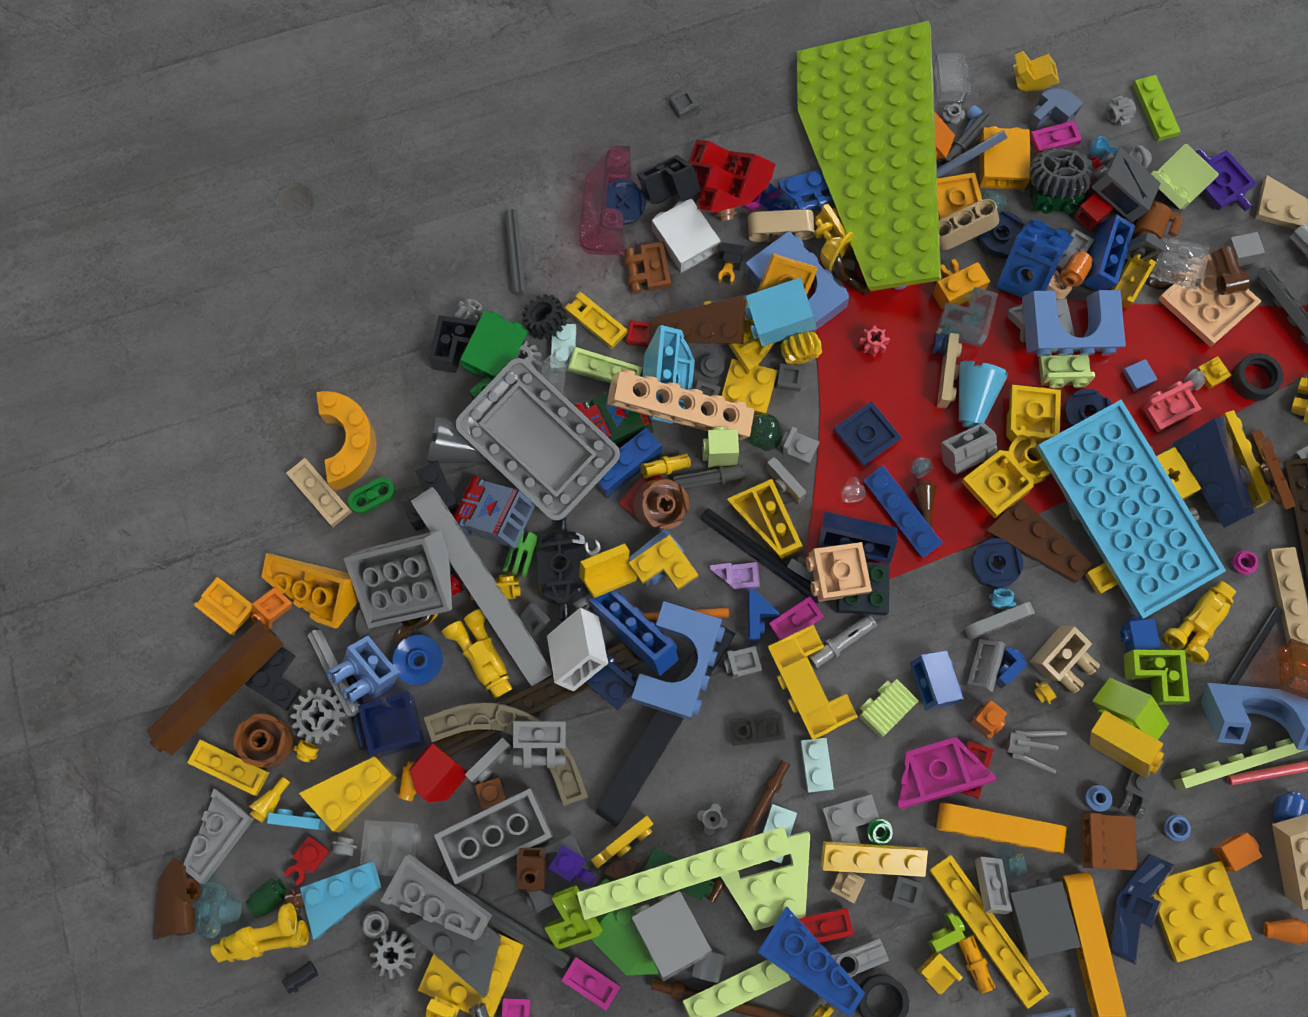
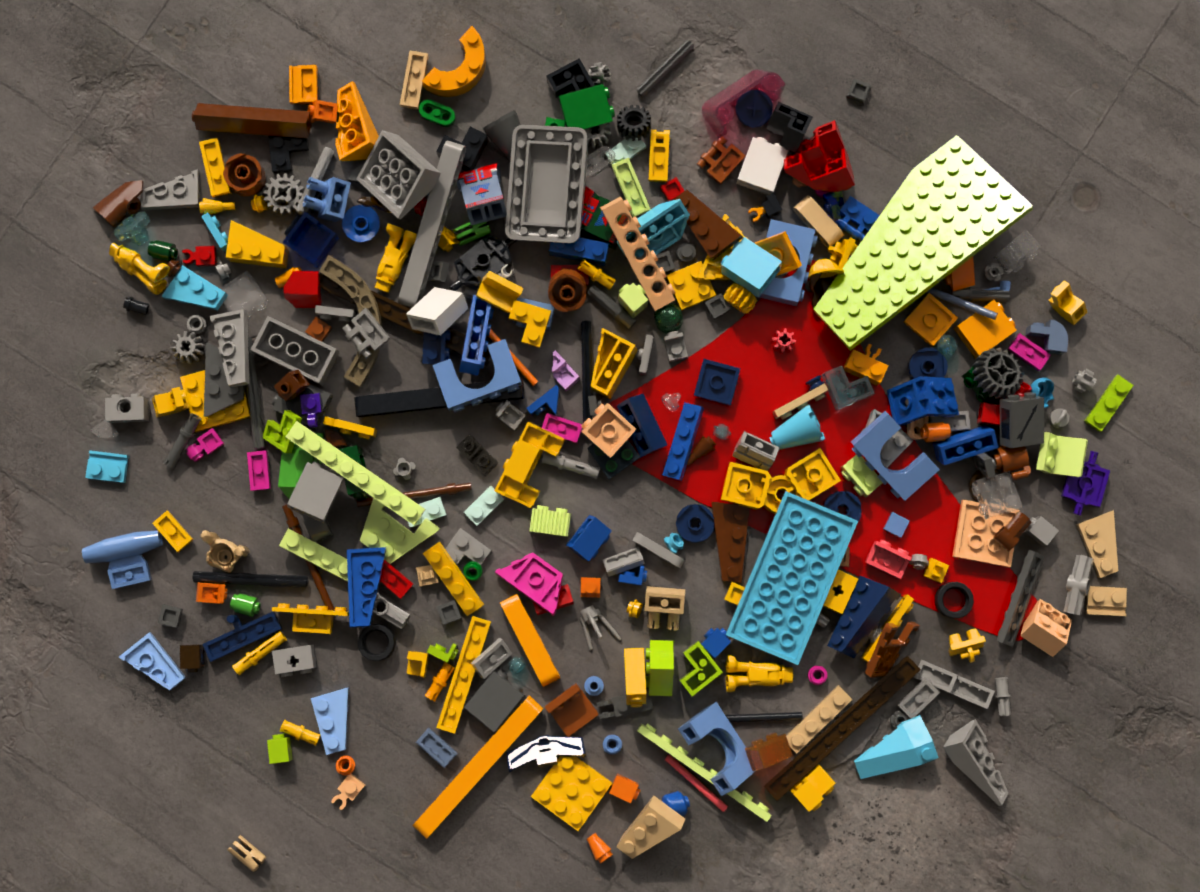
camera: 50 degrees right, 10 degrees up
(978, 217) = (908, 331): tan beam -> none
(1133, 278) = (958, 473): yellow hinge -> none

